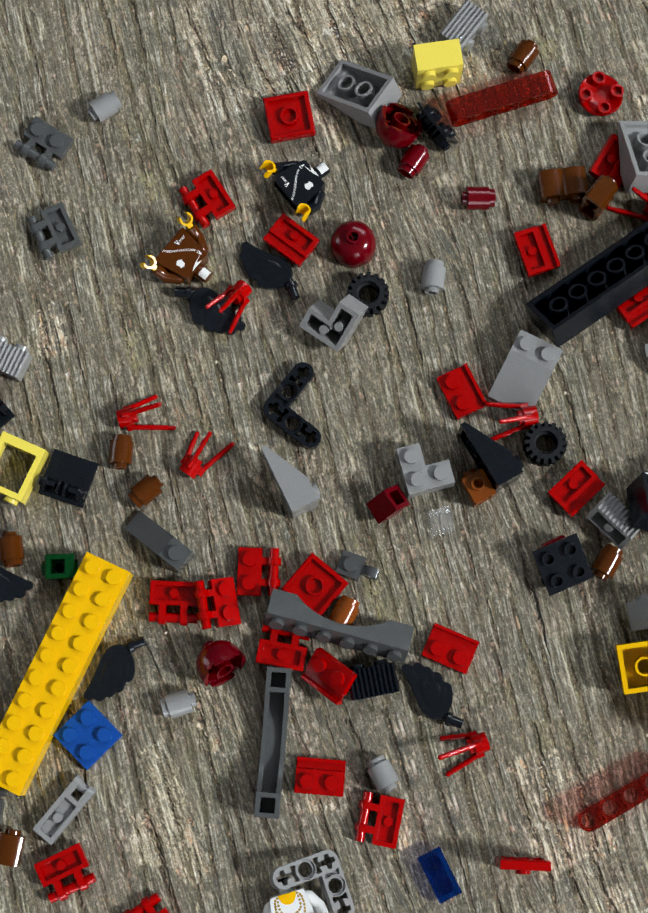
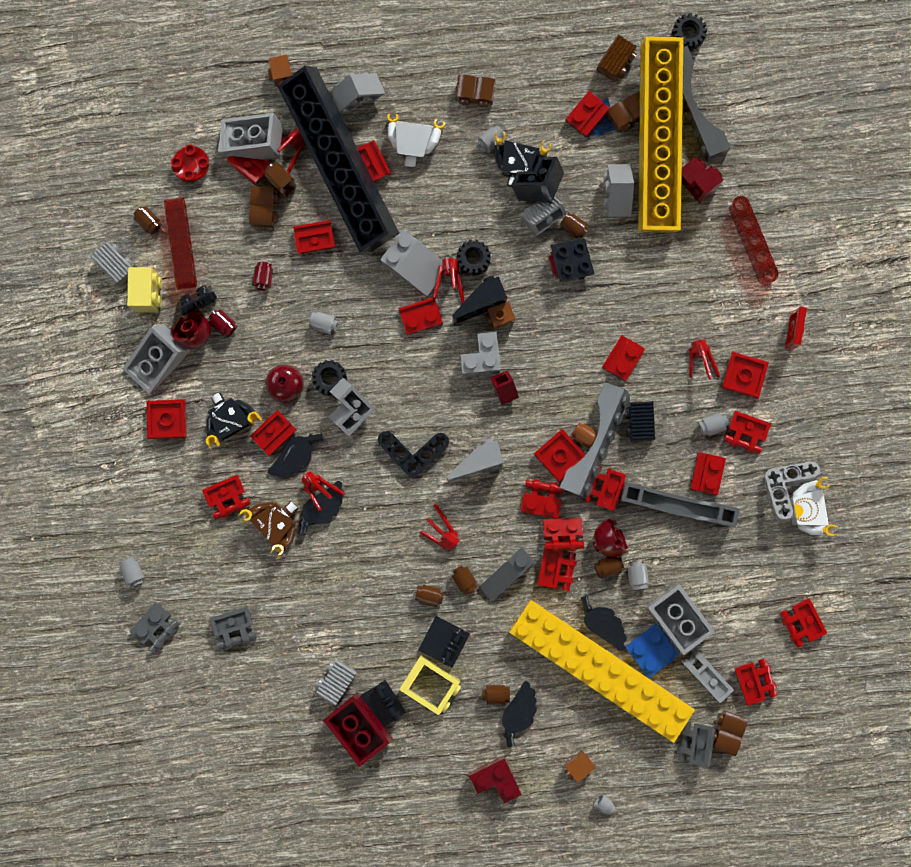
camera: 85 degrees left, 5 degrees up
(49, 566) = (520, 649): dark green brick -> none
(129, 415) = (401, 586): red plant -> none
(130, 762) = (679, 619): none -> light grey brick
(184, 665) = (609, 567): none -> reddish brown brick
(328, 676) = (633, 454): red plate -> none
(353, 566) = (549, 423): dark grey plate -> none
(431, 693) = (656, 377): black animal -> none
(439, 874) = (794, 393): clear blue plate -> none
(441, 520) = (522, 348): clear slope -> none
(452, 807) = (745, 375): none -> red plate
(576, 489) = (512, 239): red plate -> none

